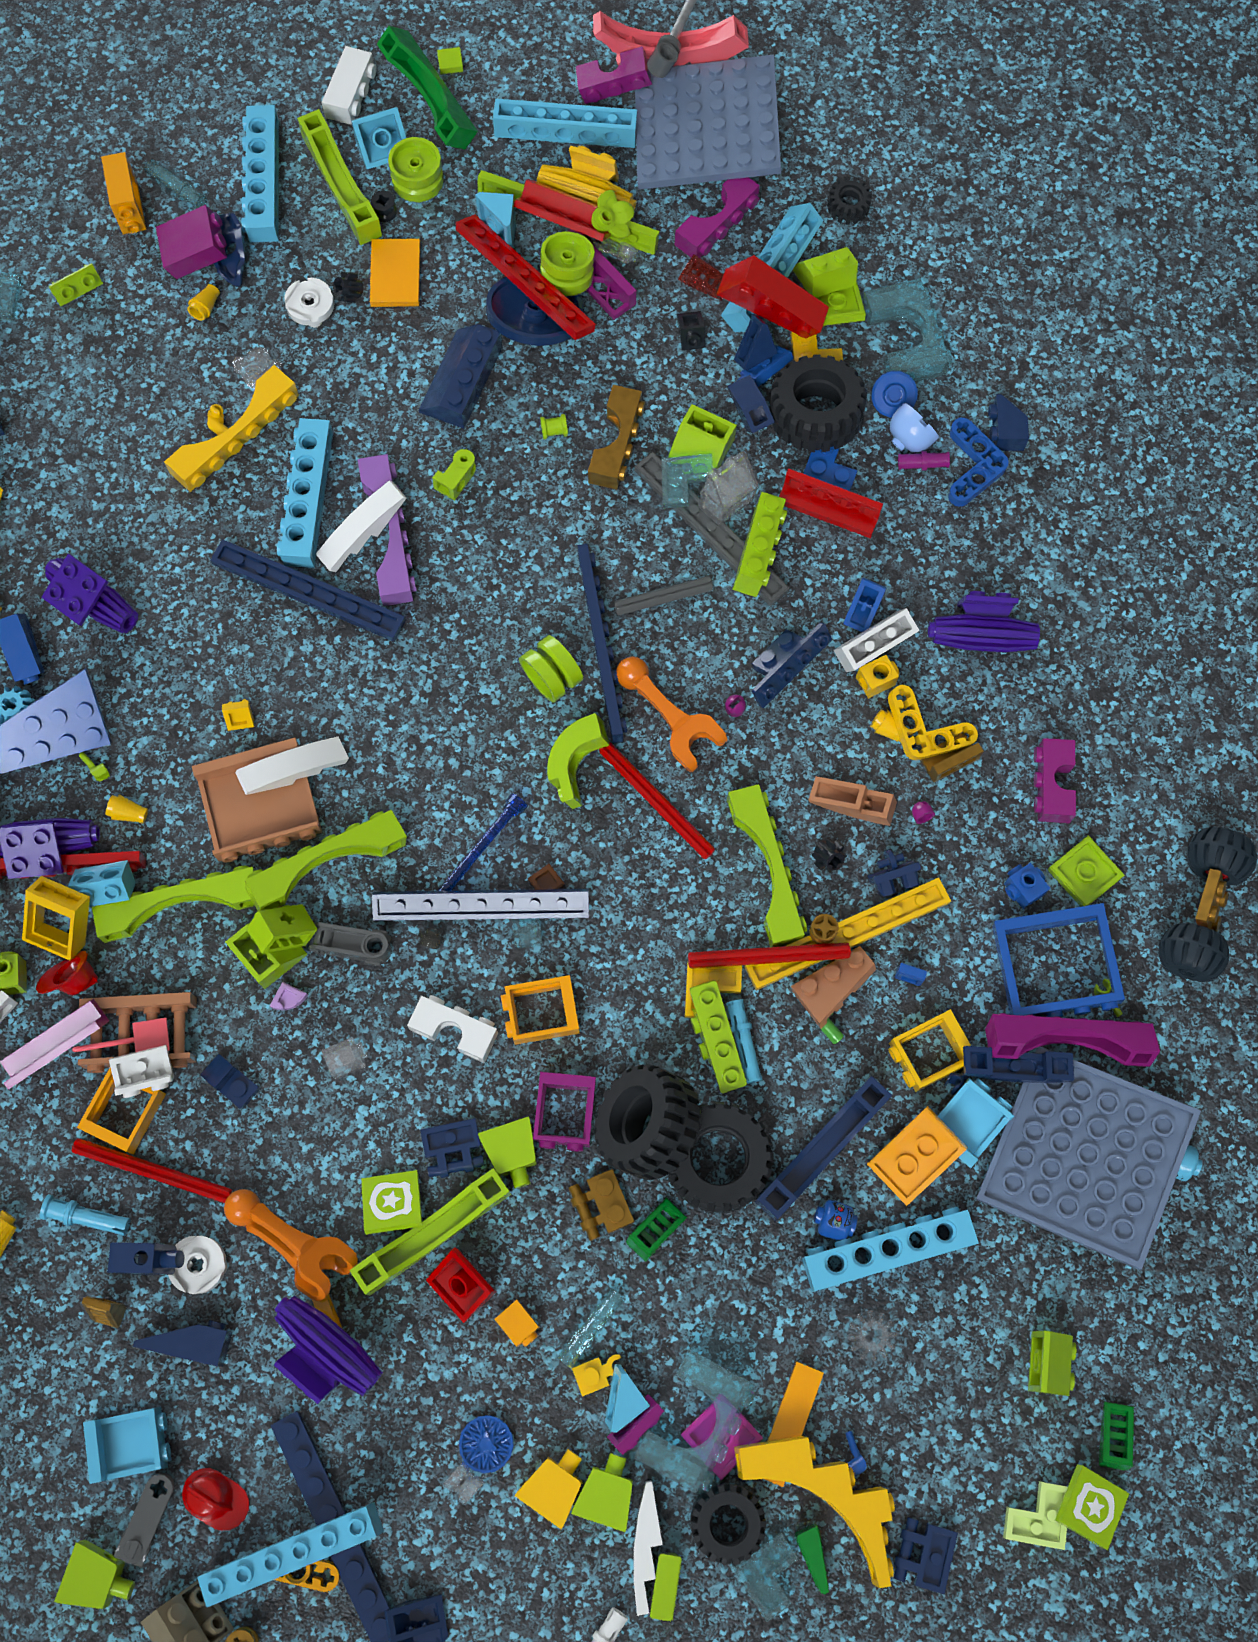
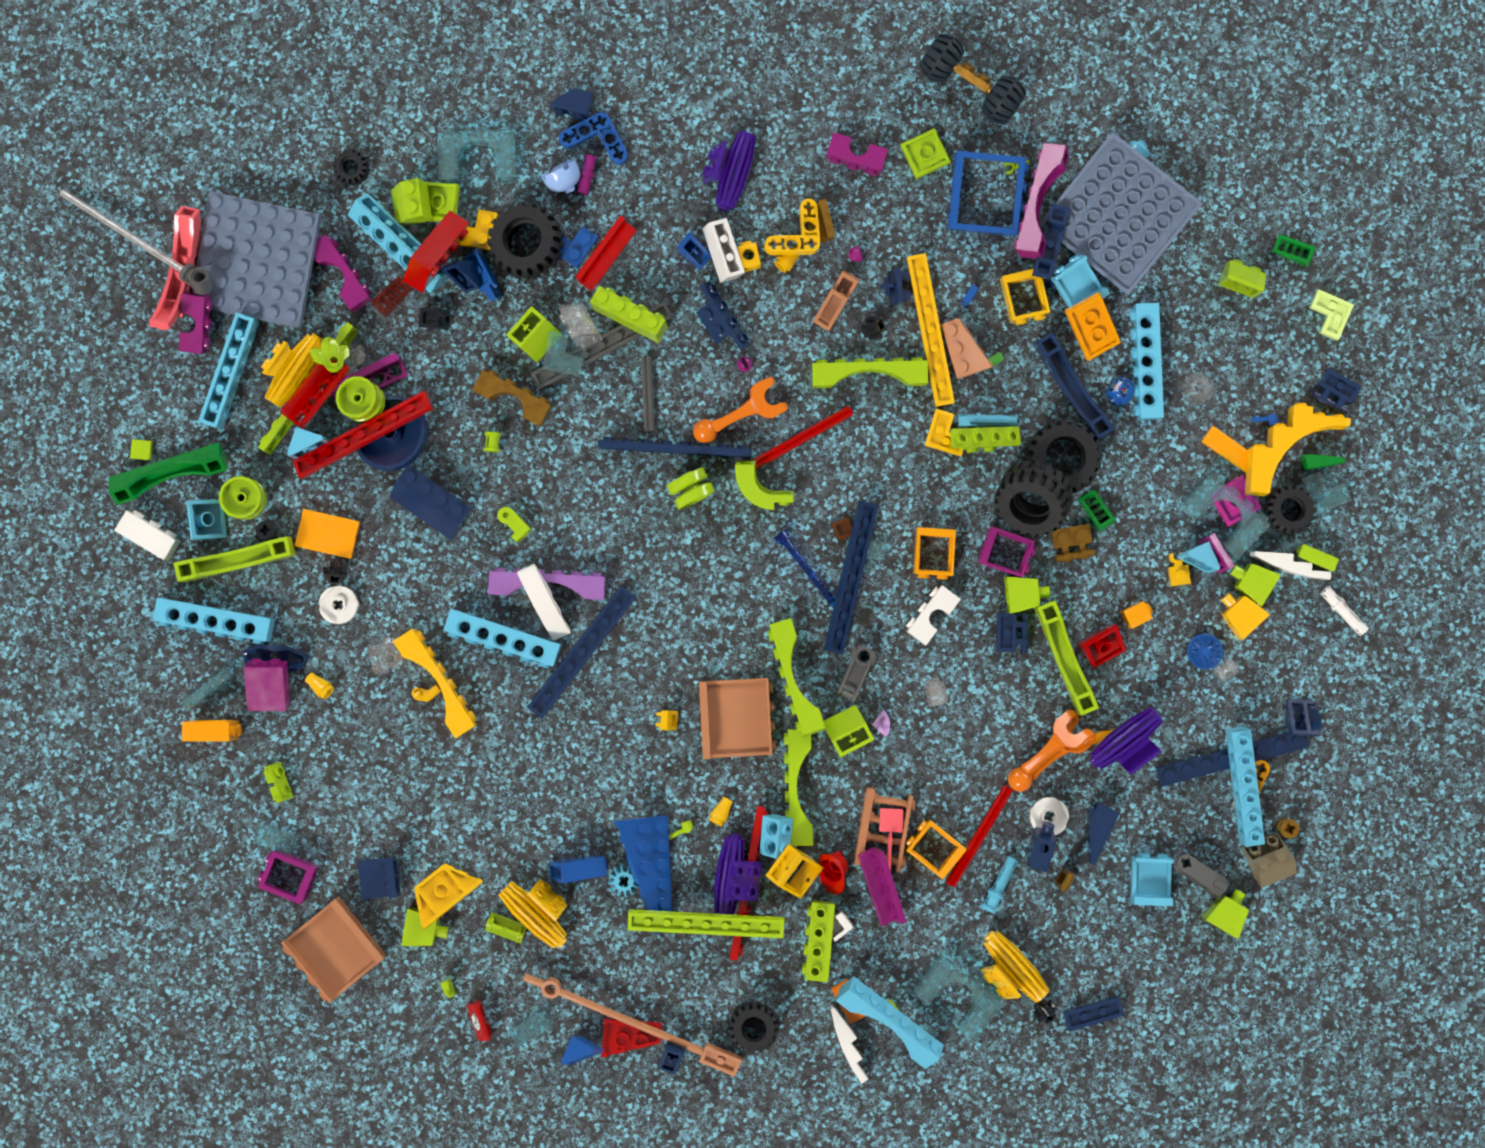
camera: 75 degrees left, 15 degrees up
(83, 592) = (551, 814): dark purple plate -> none
(141, 1070) = (918, 828): white bracket -> none
(215, 1499) = (1197, 830): red piece -> none
(230, 1081) = (931, 773): dark blue slope -> none
(281, 928) = (838, 717): lime brick -> none
(290, 765) = (718, 688): white slope -> none
(391, 1202) = (1039, 680): lime tile -> none
(589, 1330) = (1150, 568): clear light blue pin -> none
(750, 404) = (514, 291): dark blue slope -> none
(769, 955) = (935, 388): red axle -> none
(825, 923) = (927, 342): pearl gold wheel -> none
(893, 391) = (528, 181): blue wheel -> none
(1026, 885) = (931, 193): blue brick -> none
(1092, 1507) = (1333, 279): lime tile -> none

